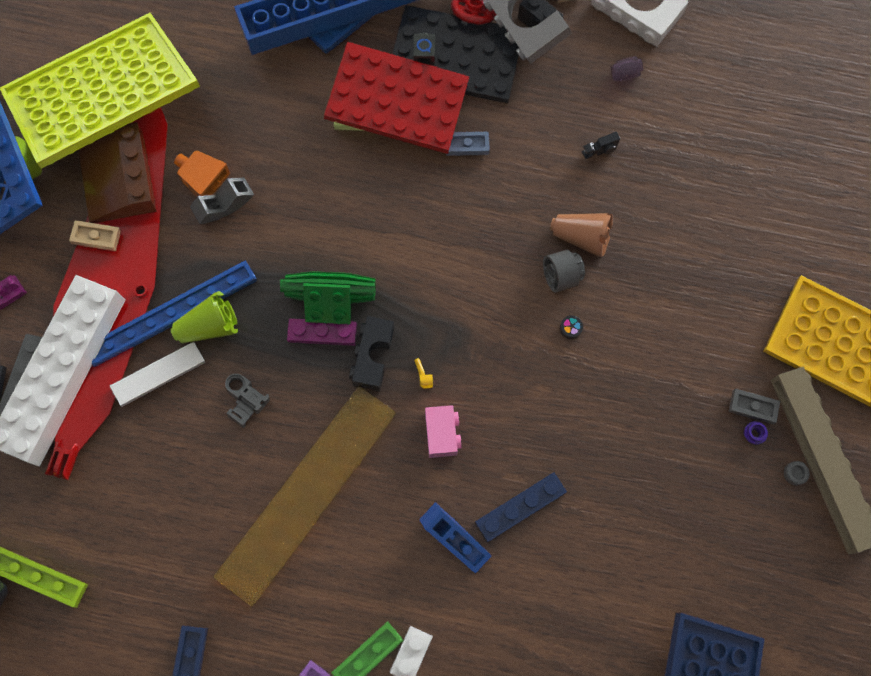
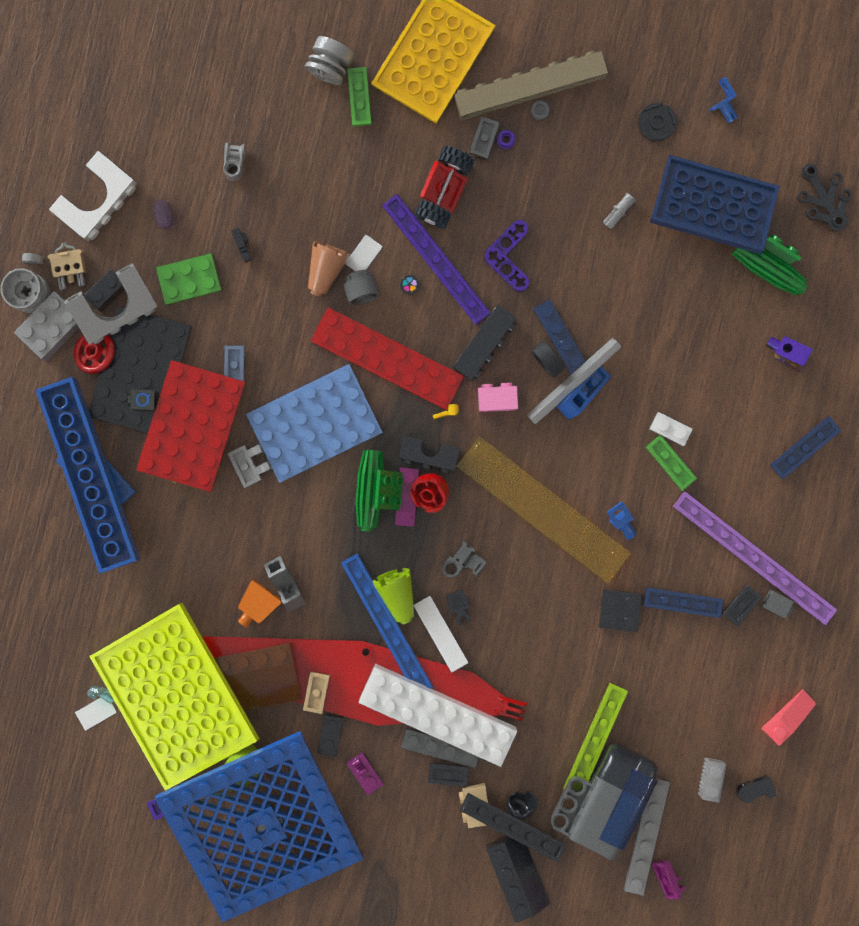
camera: 85 degrees left, 15 degrees up
(47, 256) = (330, 735): none -> black plate
(91, 23) = (95, 713): none -> white sticker
(112, 23) = (101, 692): none -> clear light blue arm
(179, 595) = (620, 610): none -> black plate
(193, 394) = (458, 603): none -> black plate
(291, 591) = (622, 520): none -> blue bracket
(326, 354) = (430, 492): none -> red cylinder
(355, 157) = (245, 466): none -> light grey plate
(405, 230) = (314, 423): none -> medium blue plate
(471, 528) = (574, 381): none -> light grey tile
(482, 307) = (387, 358): none -> red plate
(492, 489) = (548, 359): none -> black tyre
(507, 413) = (484, 342): none -> black brick
(559, 97) = (188, 279): none -> bright green plate
(602, 277) = (363, 254): none -> white sticker
(602, 357) = (436, 259): none -> dark purple tile
(618, 432) = (502, 252): none -> dark purple beam
(684, 576) = (619, 211): none -> light grey axle
(691, 359) = (444, 187): none -> plate
(696, 136) = (234, 157): none -> light grey piece
(783, 264) = (359, 96): none -> bright green plate
(802, 623) = (657, 122): none -> black tile
(823, 227) = (329, 59): none -> light grey wheel

